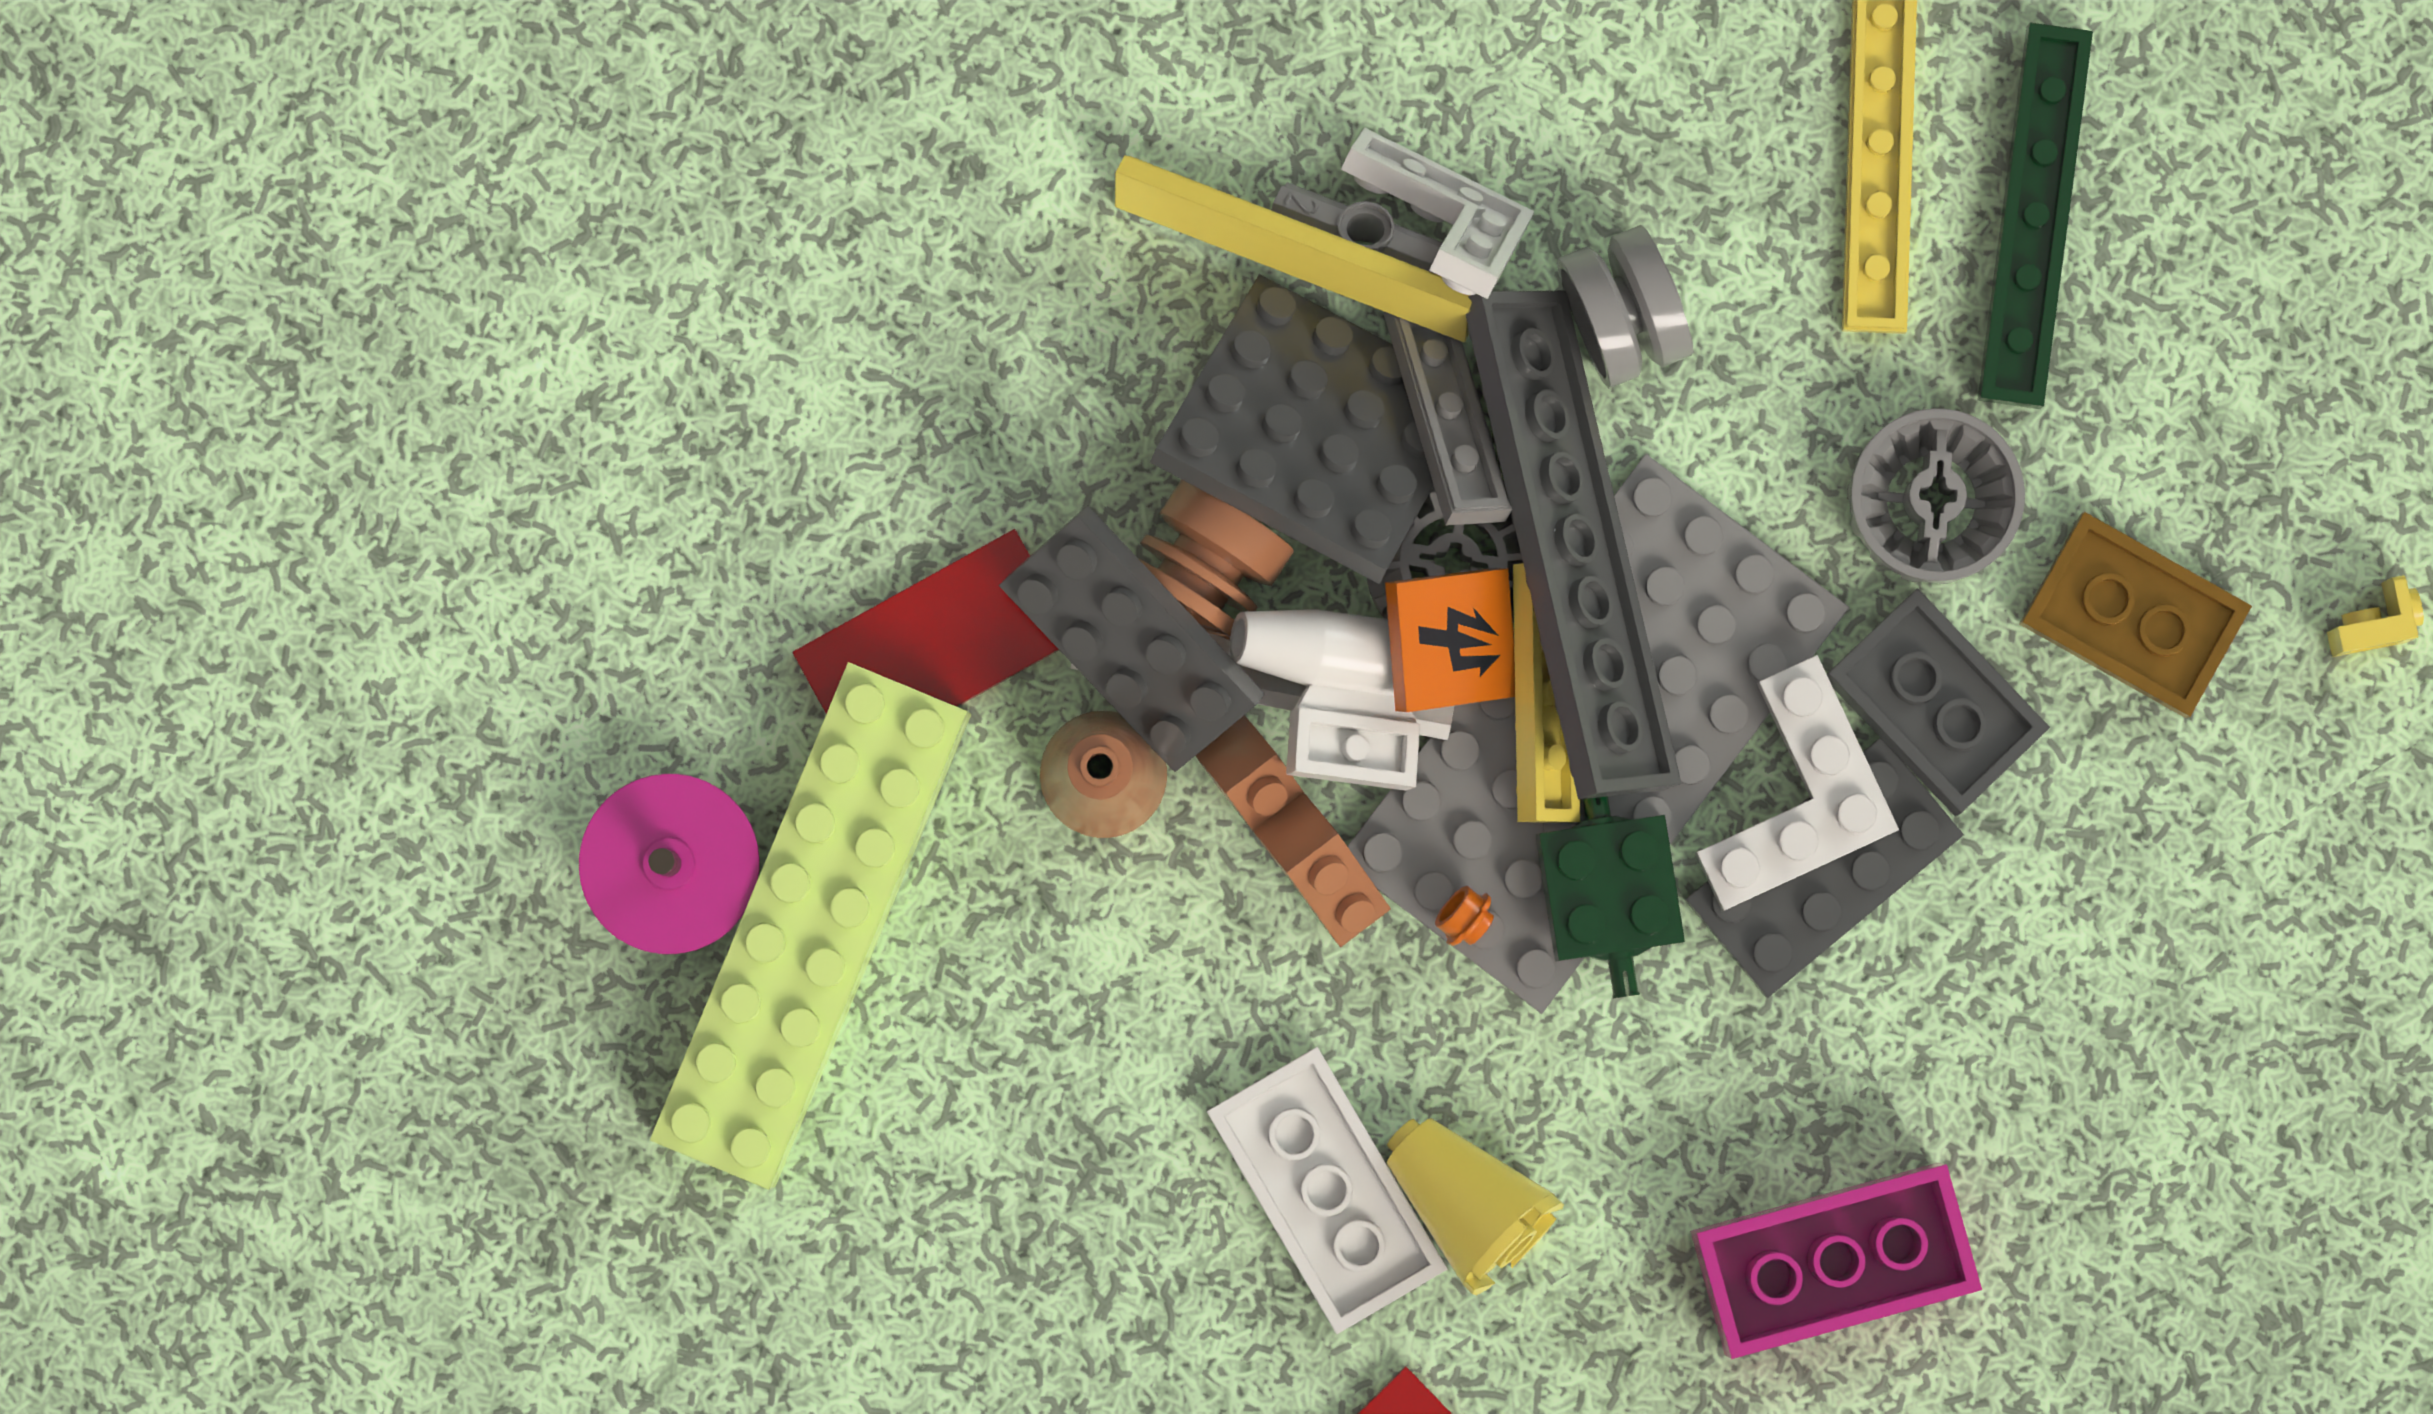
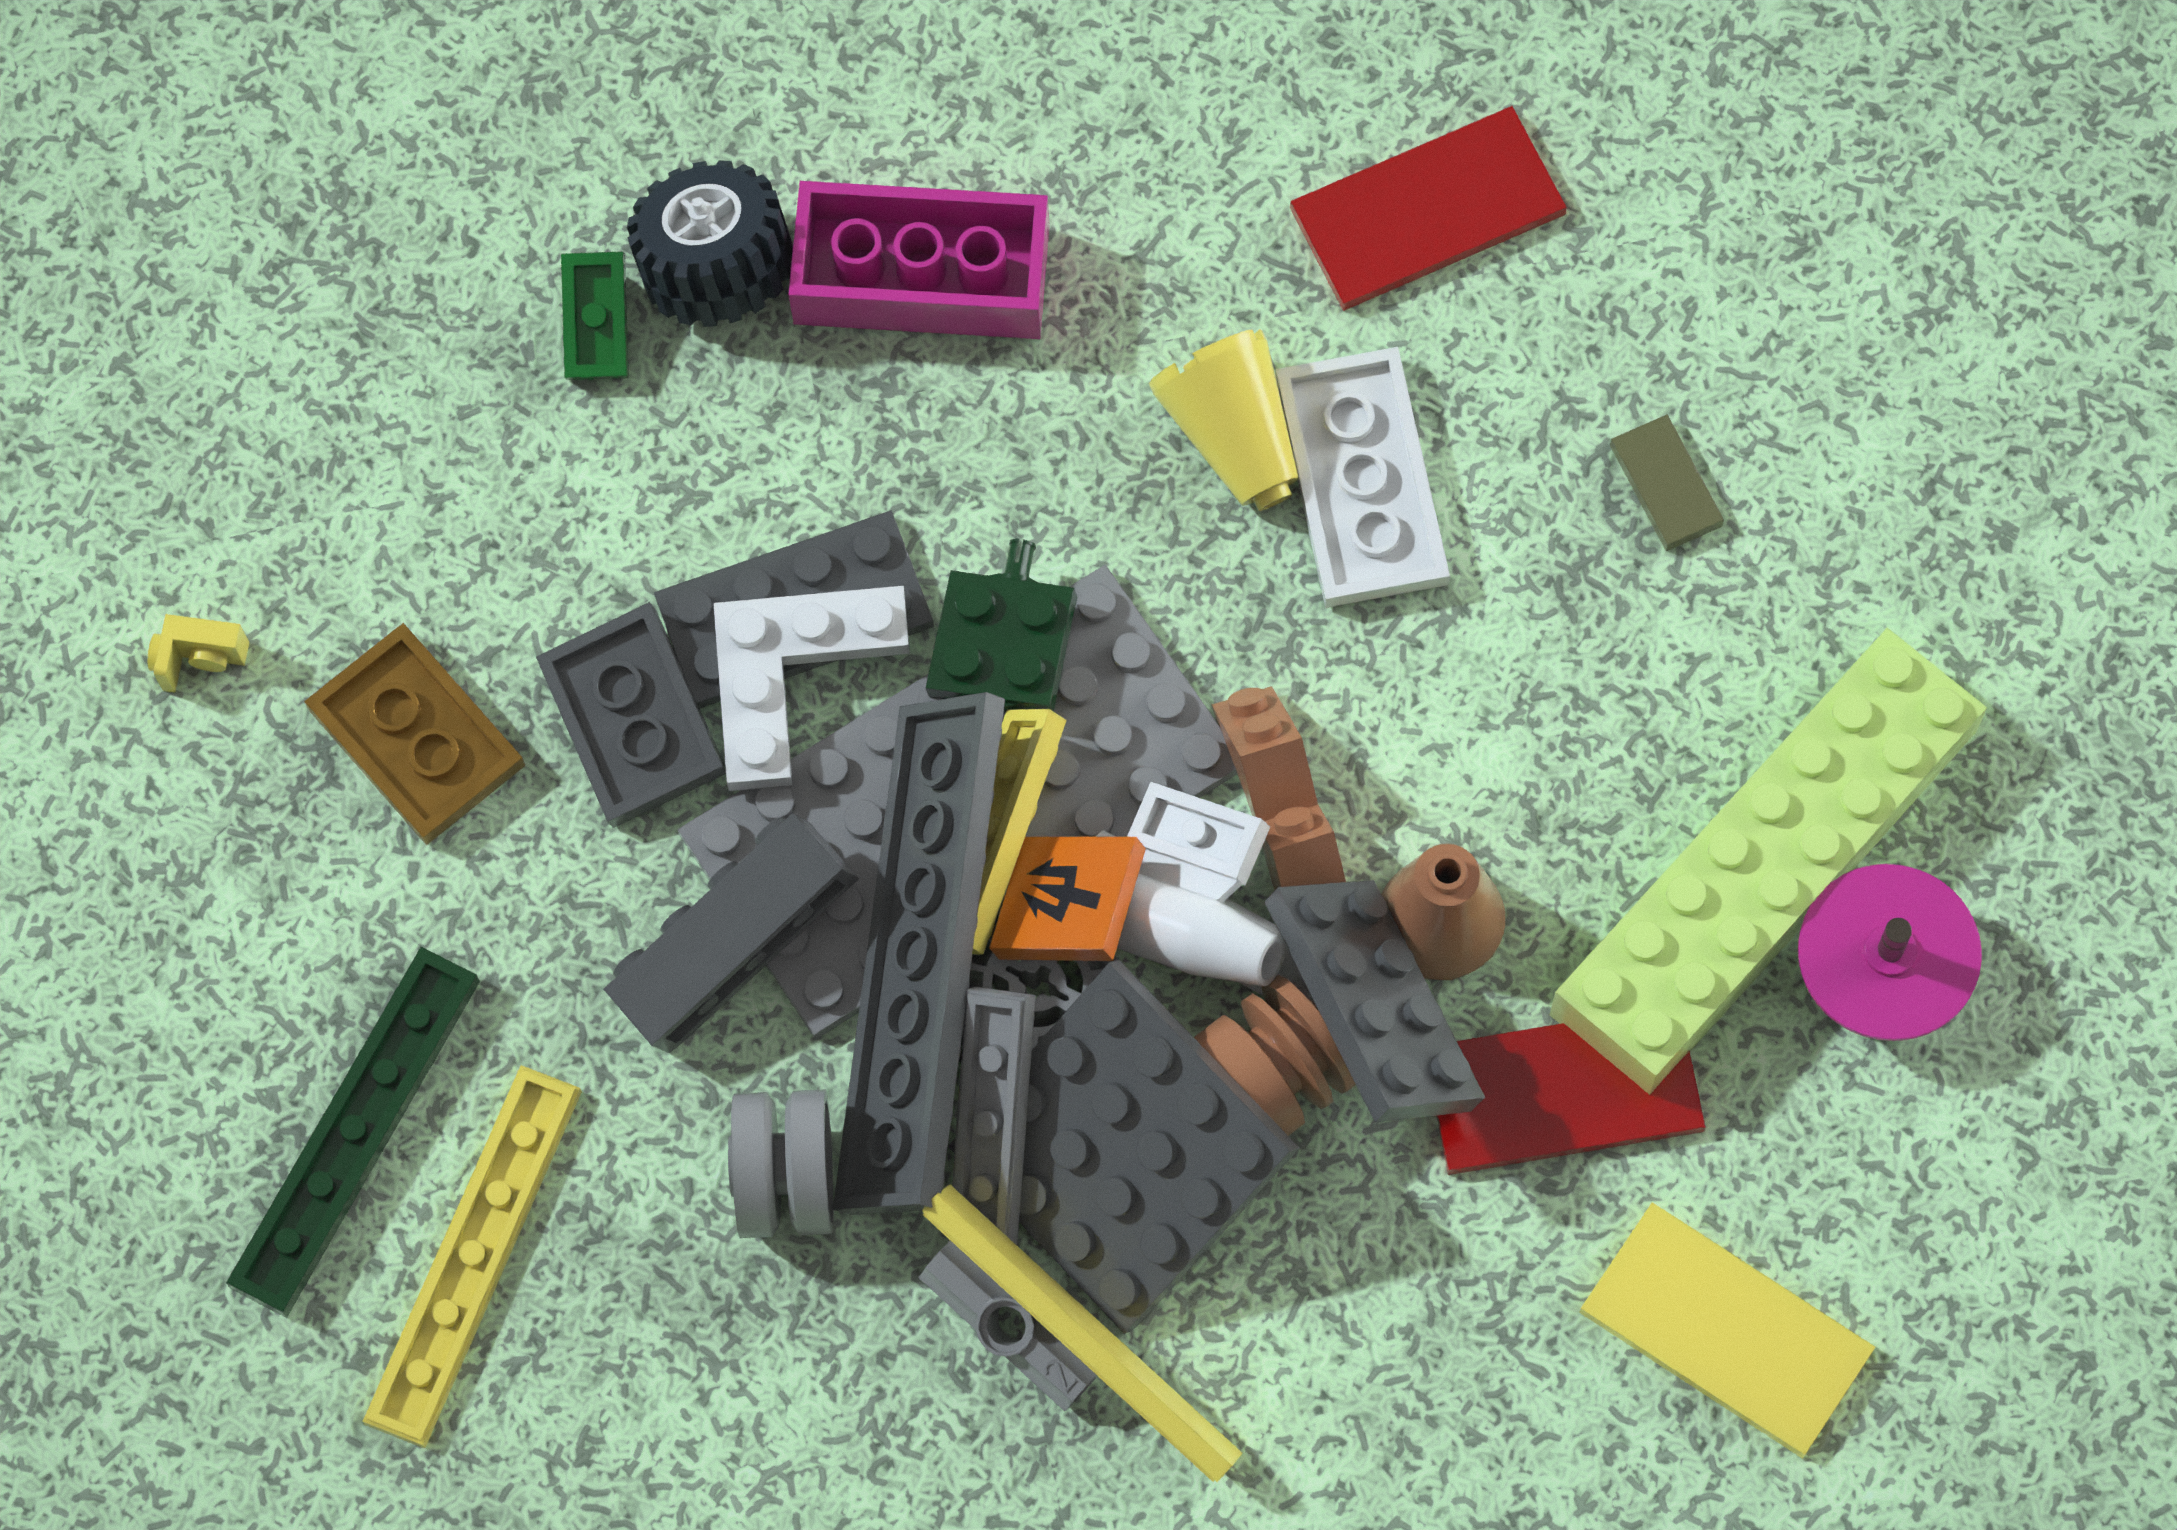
camera: 160 degrees left, 15 degrees down
(713, 470) = (1727, 1330): none -> light yellow tile
(1031, 1289) = (1666, 482): none -> olive tile
(1465, 916) = (1146, 660): orange plate -> none
(1483, 221) = (884, 1309): white plate -> none
(1757, 511) = (729, 932): none -> dark grey brick
(1939, 438) = (555, 852): light grey gear -> none
(2046, 1203) = (710, 243): none -> black wheel
(2132, 1094) = (594, 315): none -> green plate

